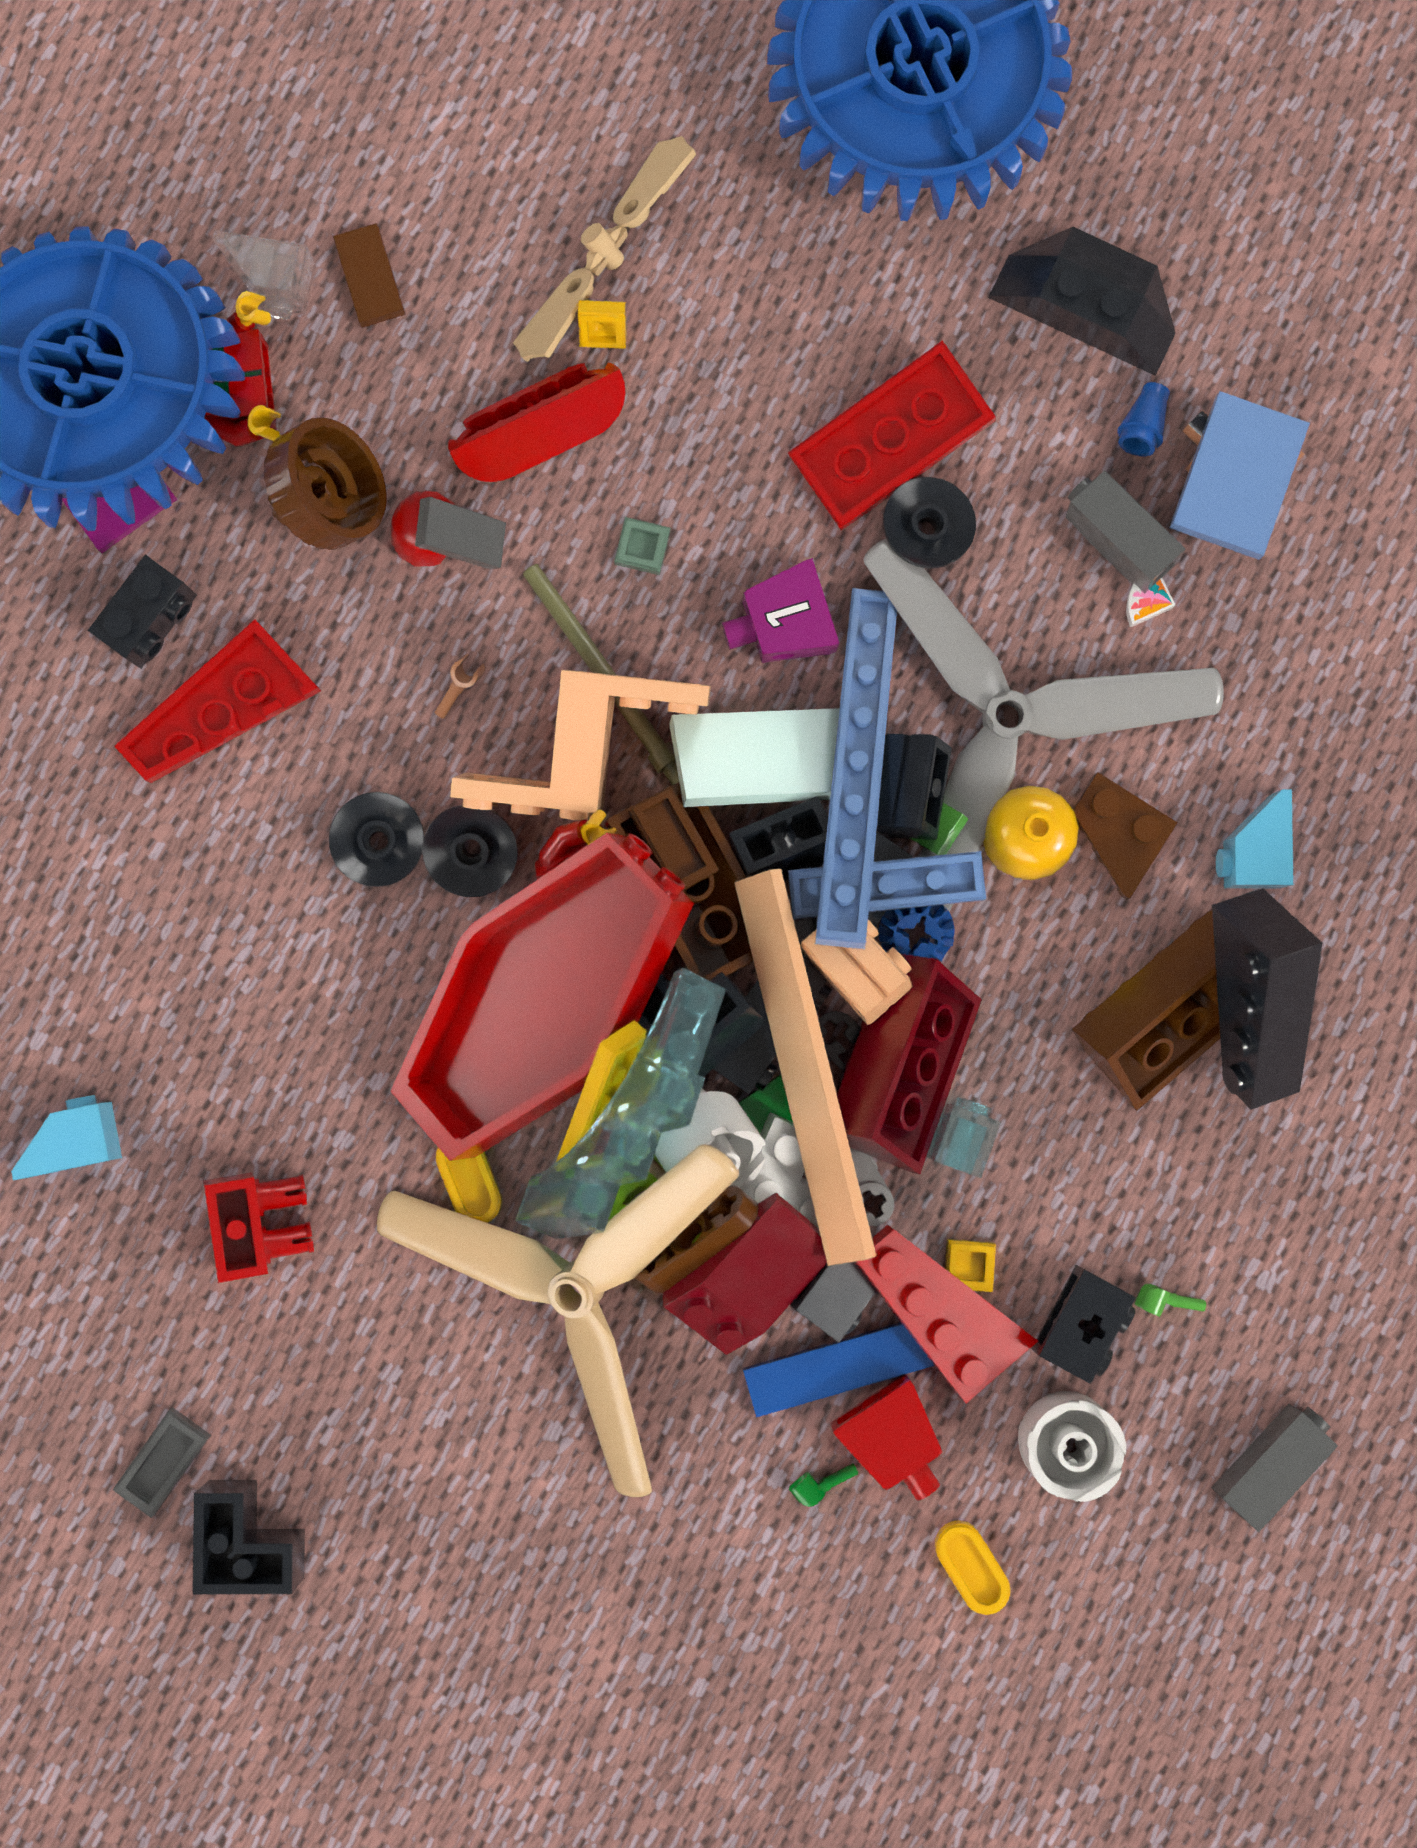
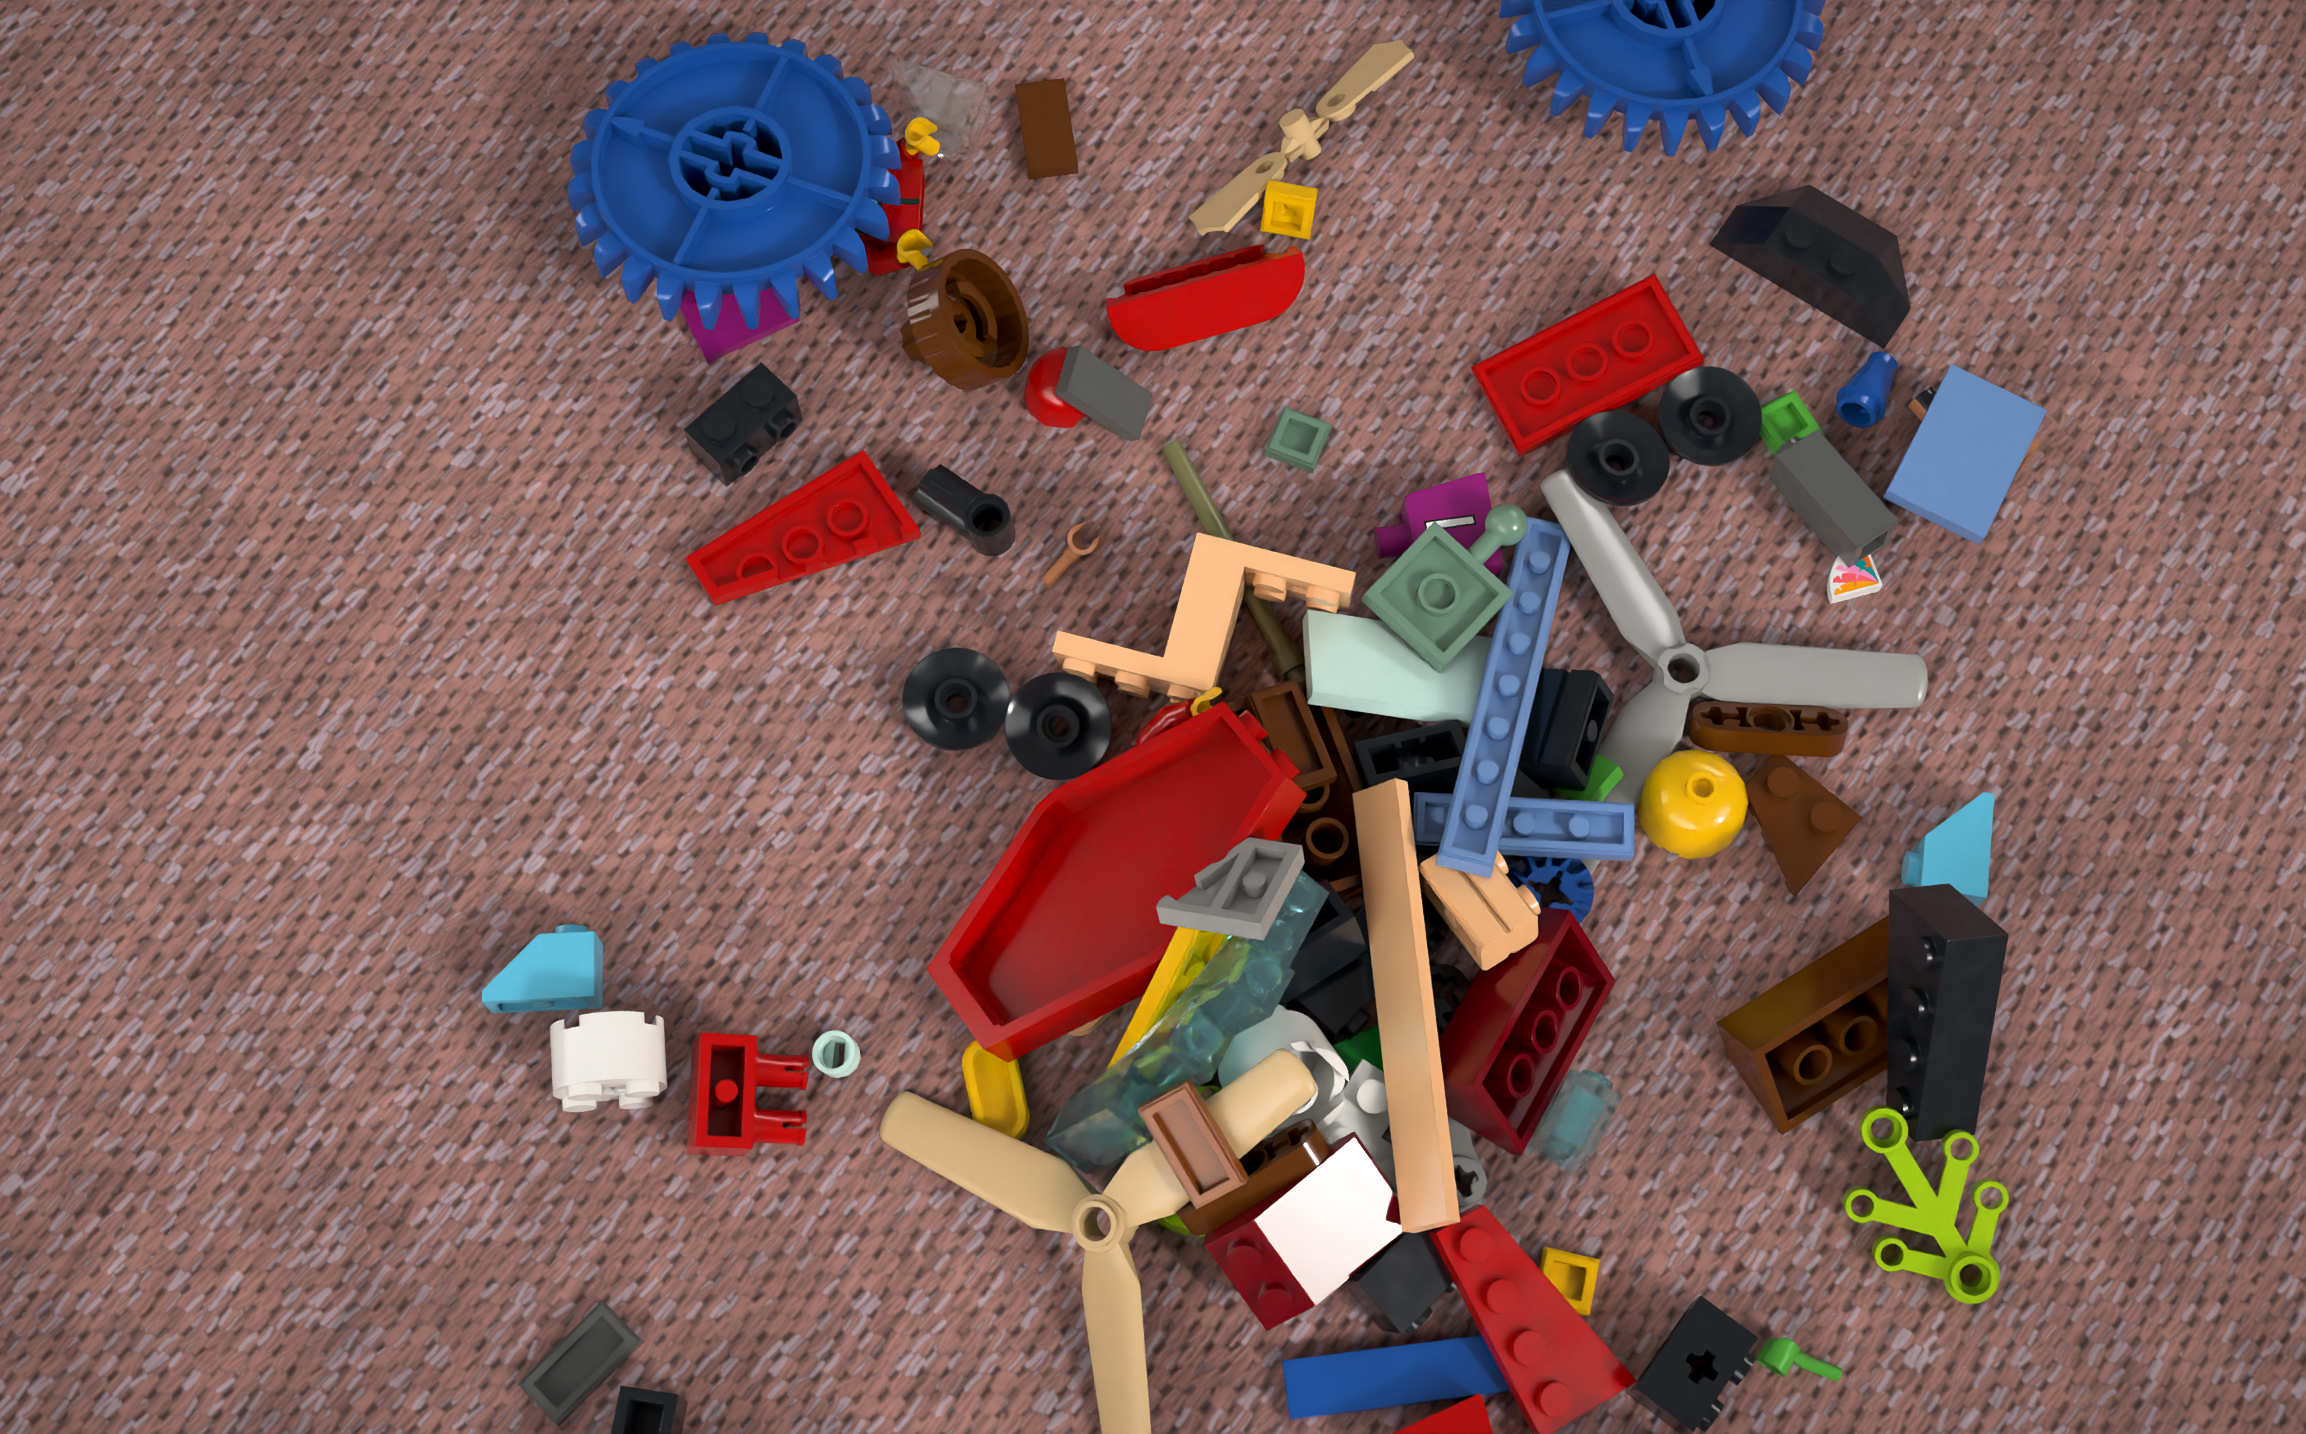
camera: 10 degrees right, 15 degrees down
(132, 1214) = (608, 1059): none -> white brick
(320, 1171) = (826, 1054): none -> light aqua hinge
(355, 660) = (965, 509): none -> black piece
(639, 1229) = (1193, 1143): none -> tile
(646, 1014) = (1239, 892): none -> light grey wing
(789, 680) = (1442, 592): none -> sand green plate
(1022, 452) = (1723, 398): none -> black dish
(1074, 462) = (1784, 420): none -> bright green tile
(1122, 763) = (1800, 729): none -> reddish brown beam
(1269, 1164) = (1933, 1212): none -> lime plant

